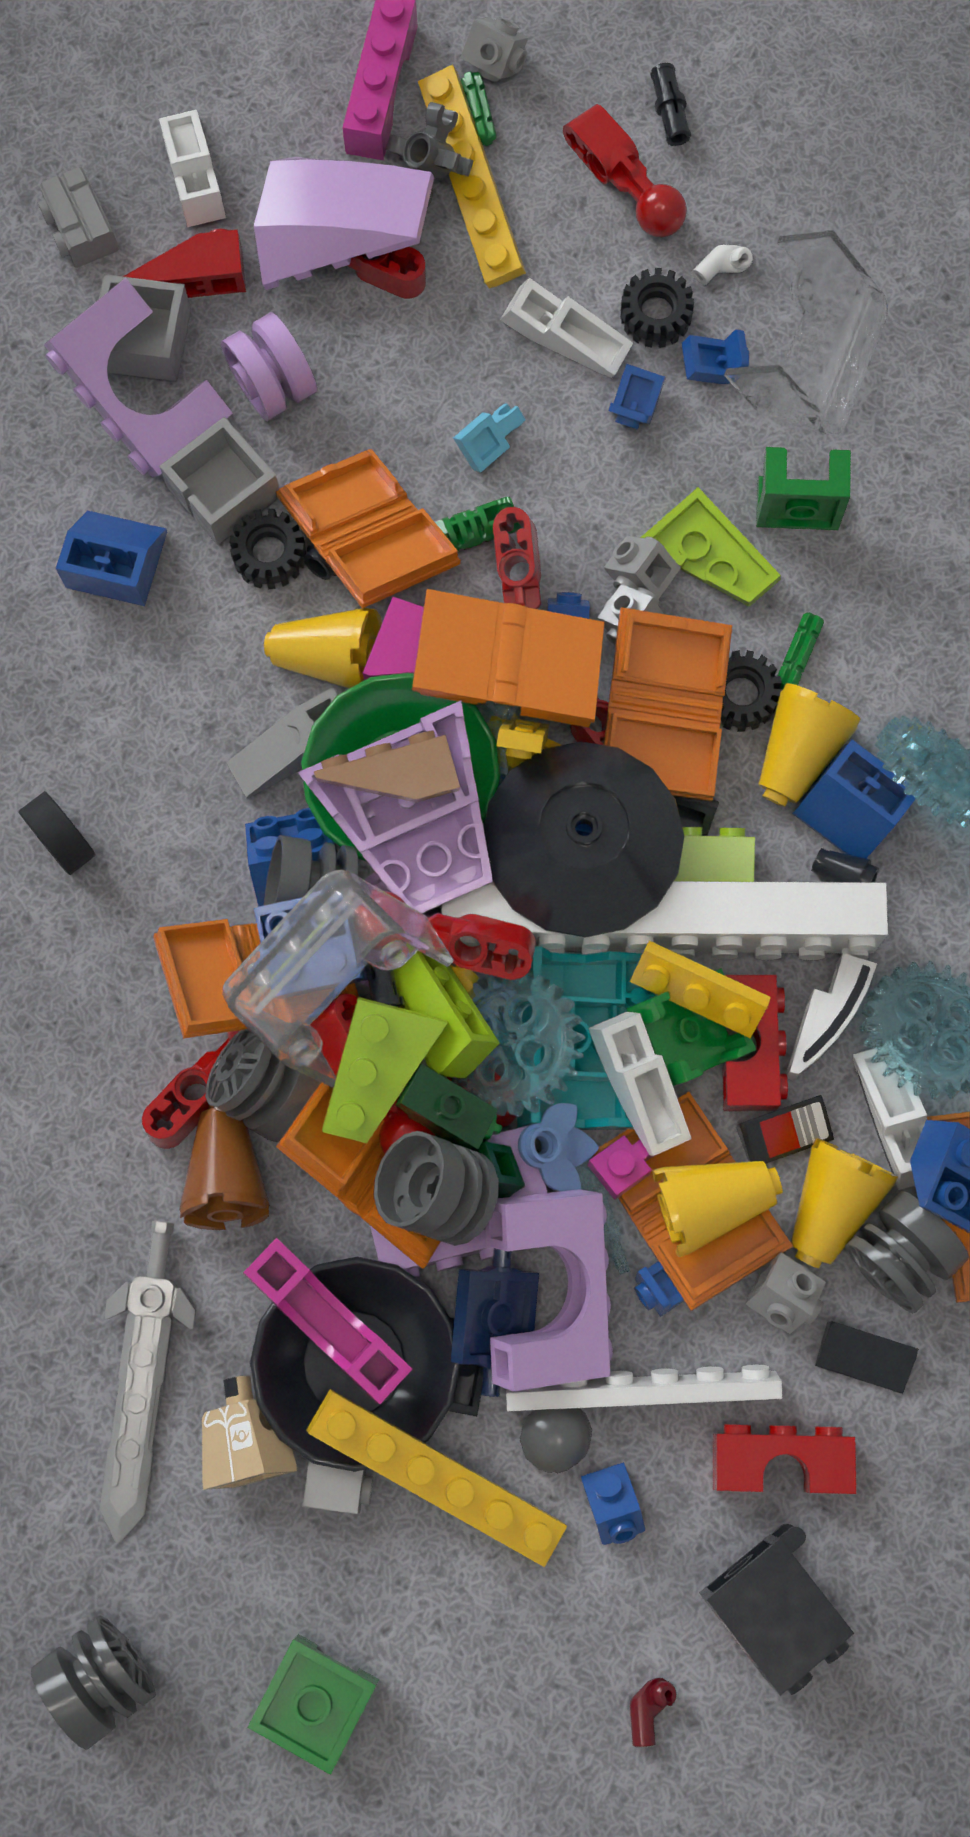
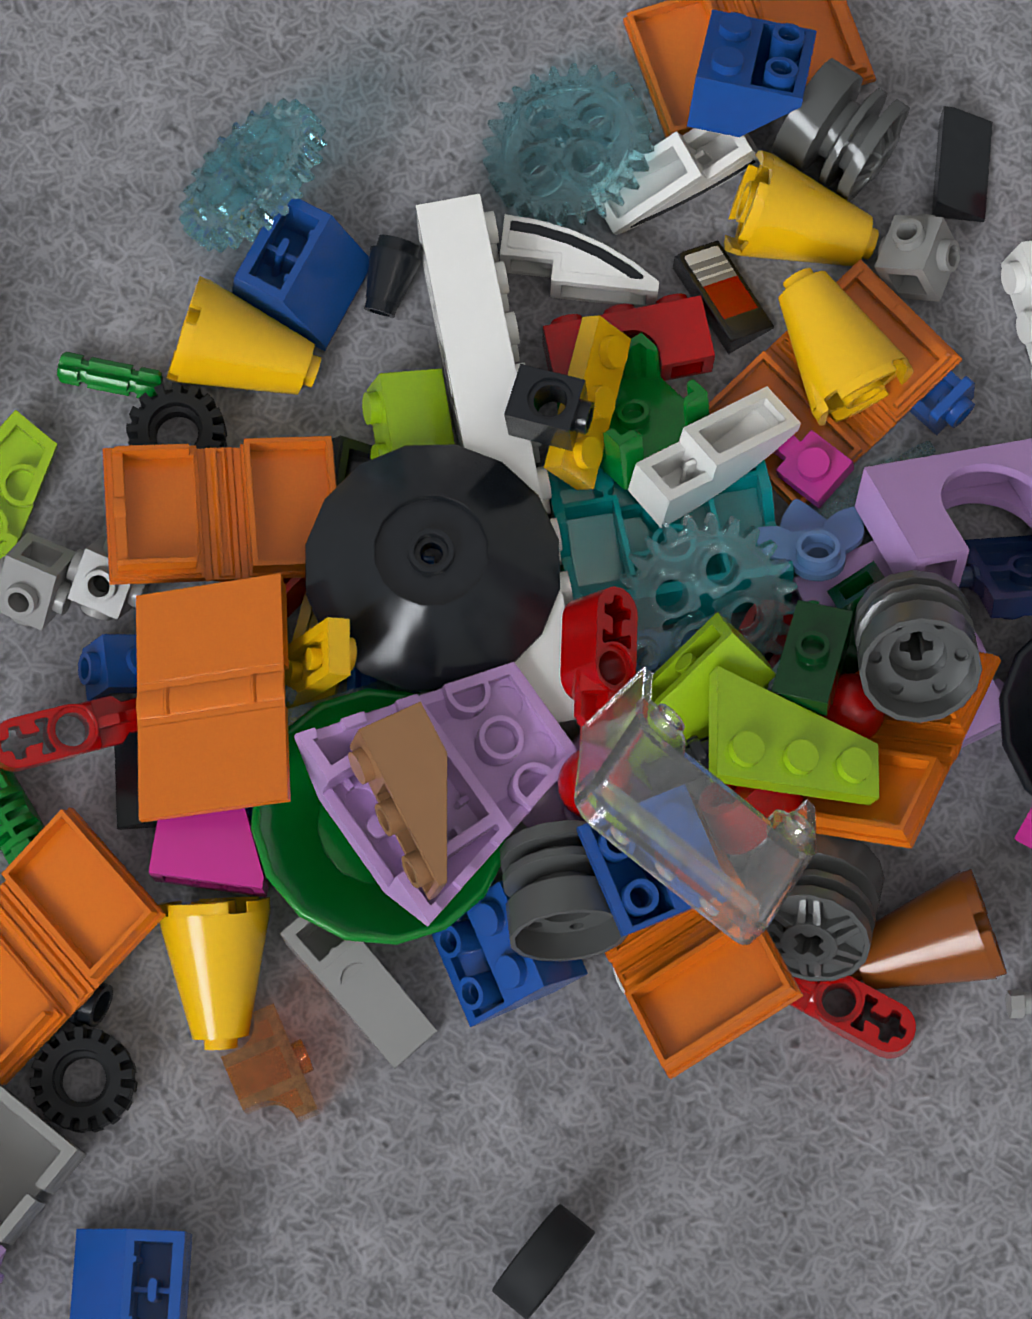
camera: 105 degrees left, 0 degrees up
(243, 676) = (272, 1069): none -> clear orange brick
(700, 929) = (534, 389): none -> black brick

